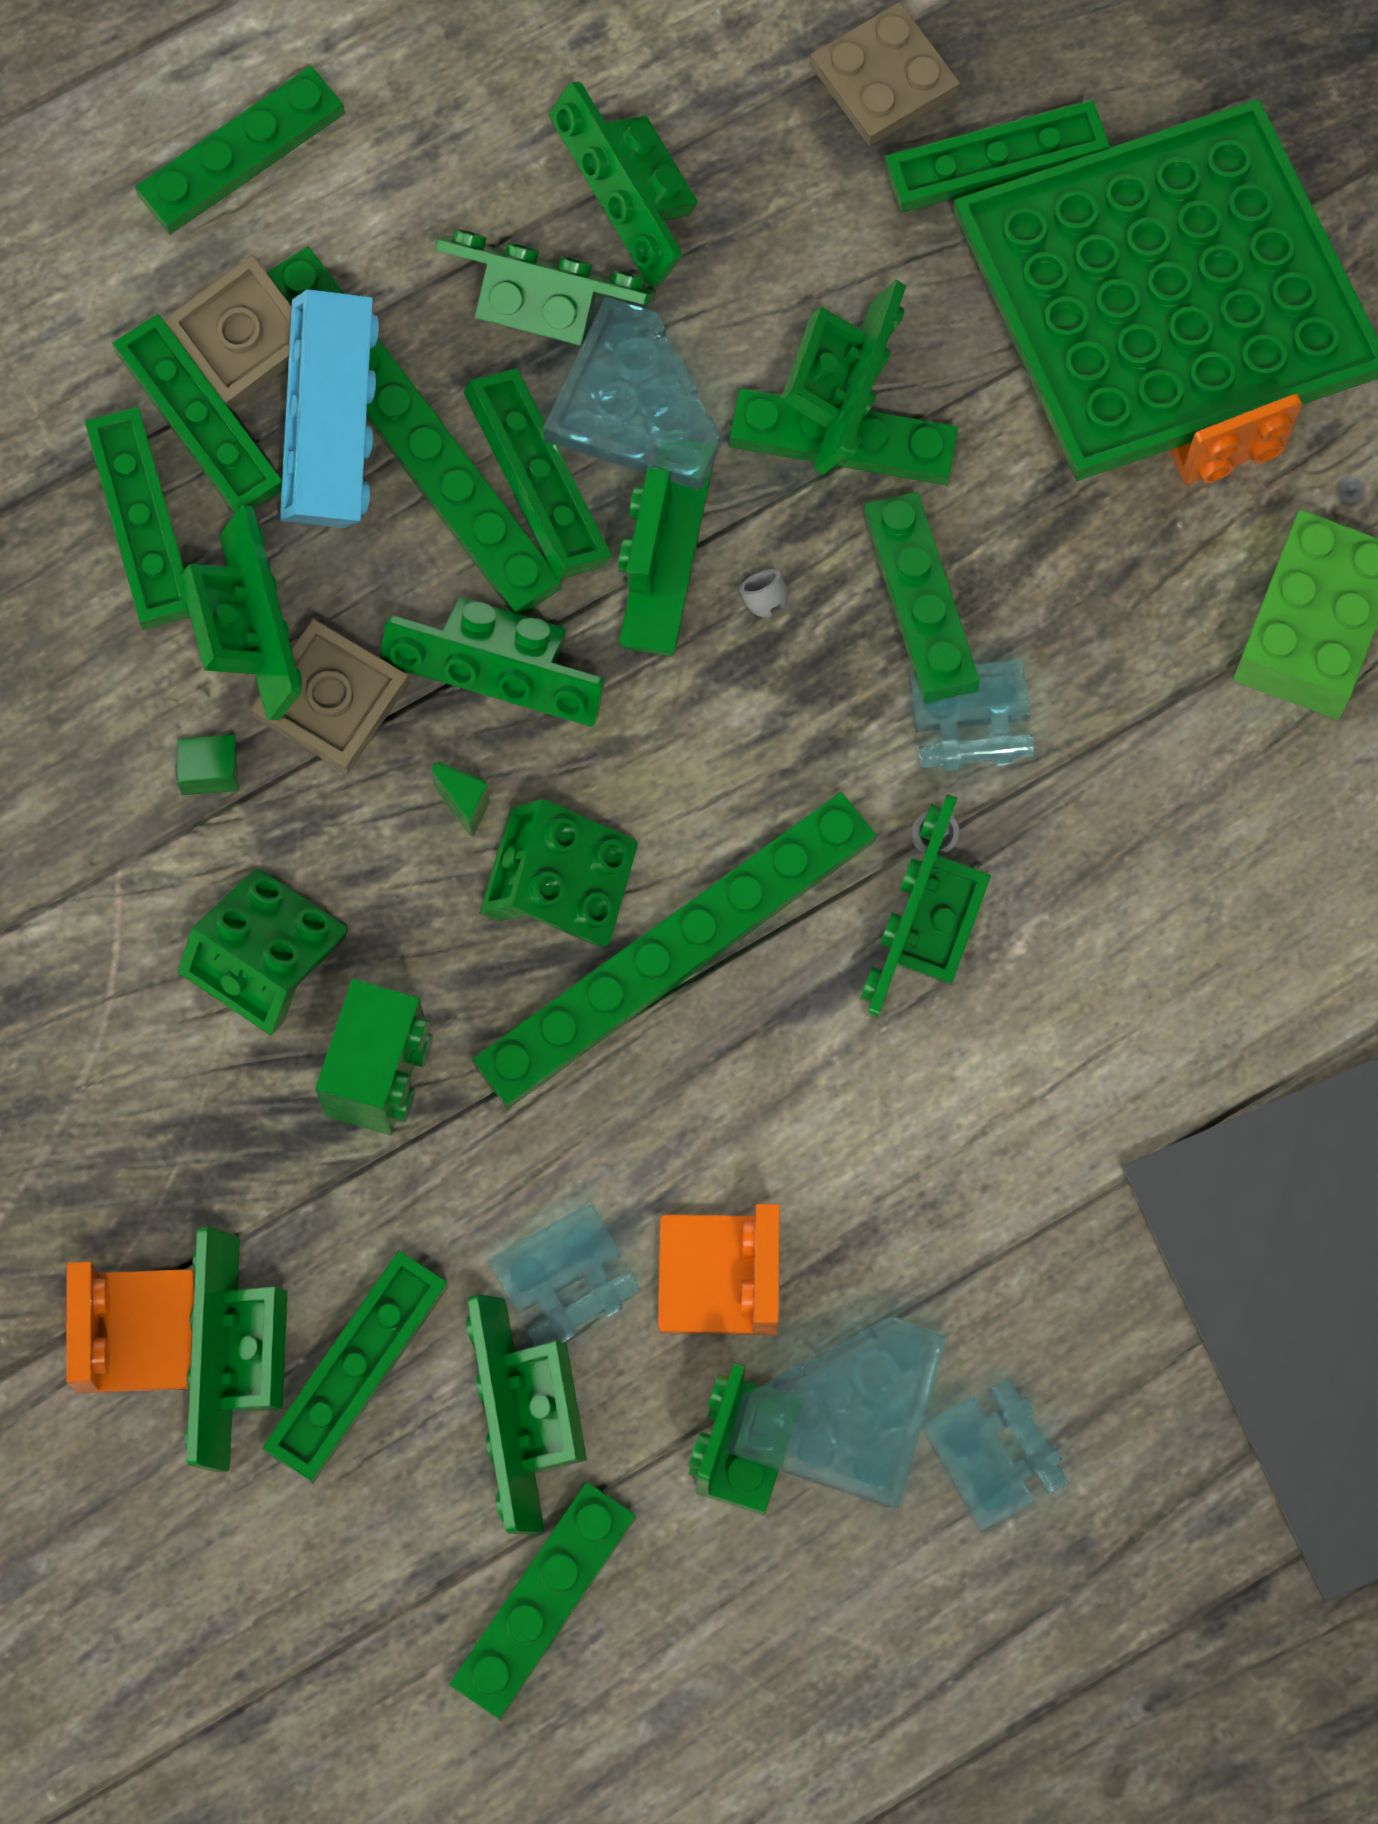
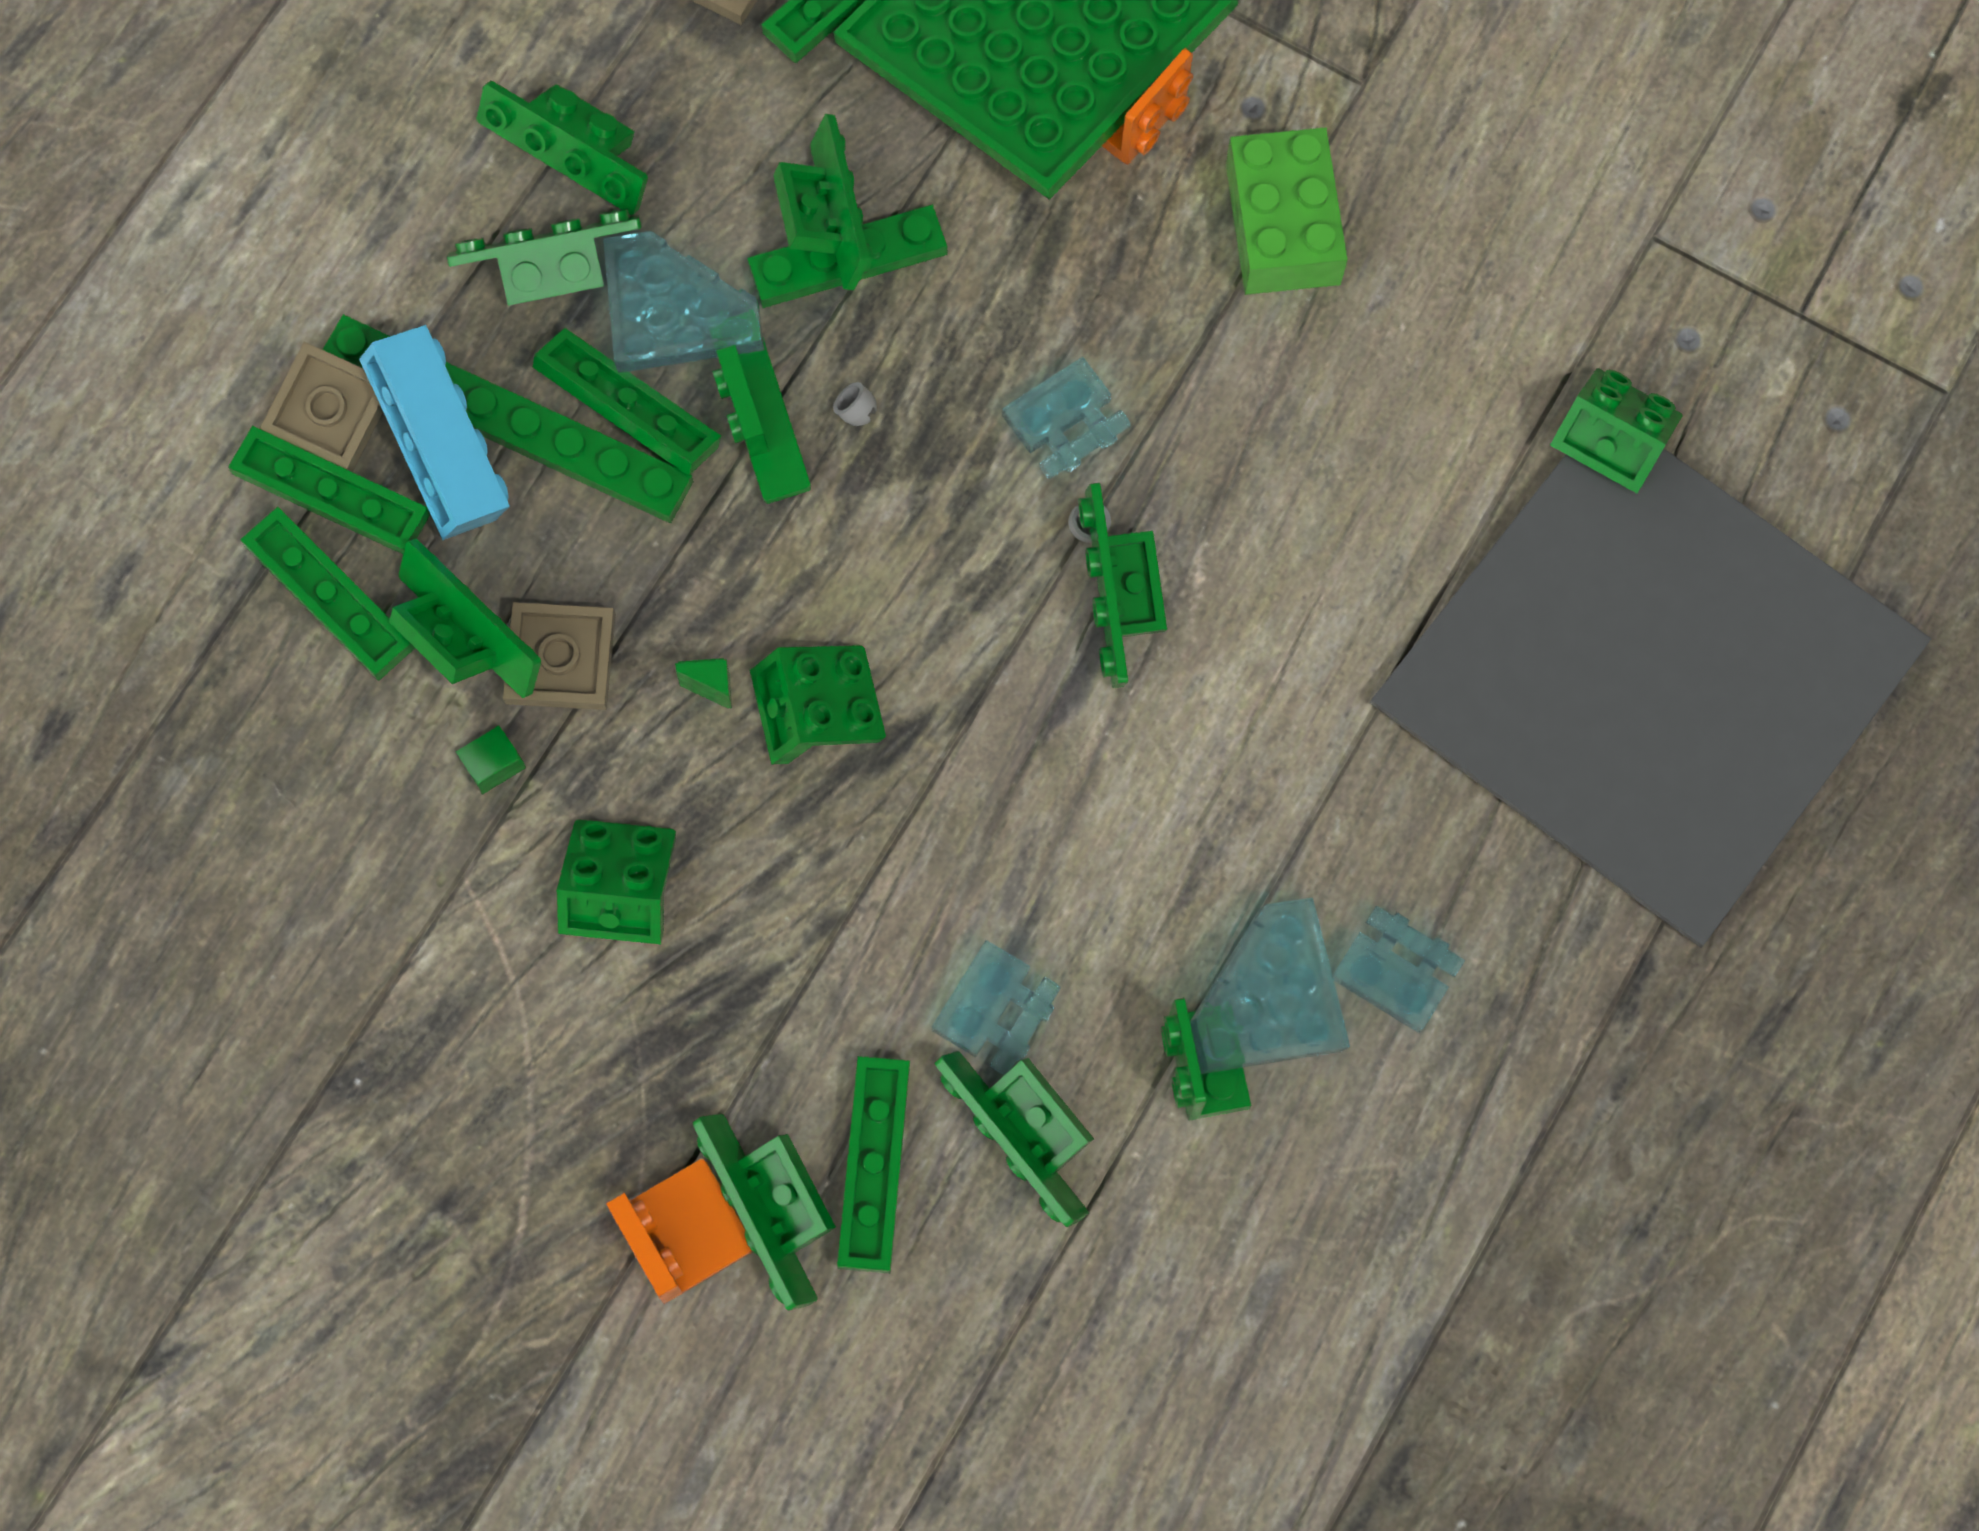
camera: 30 degrees left, 0 degrees up
(240, 150) = (244, 267): green plate -> none
(373, 1058) = (754, 916): green brick -> none
(496, 657) = (675, 559): green bracket -> none
(542, 1601) = (1119, 1266): green plate -> none
(673, 950) = (937, 716): green plate -> none
(720, 1273) = (1116, 941): orange bracket -> none
(921, 597) = (979, 348): green plate -> none

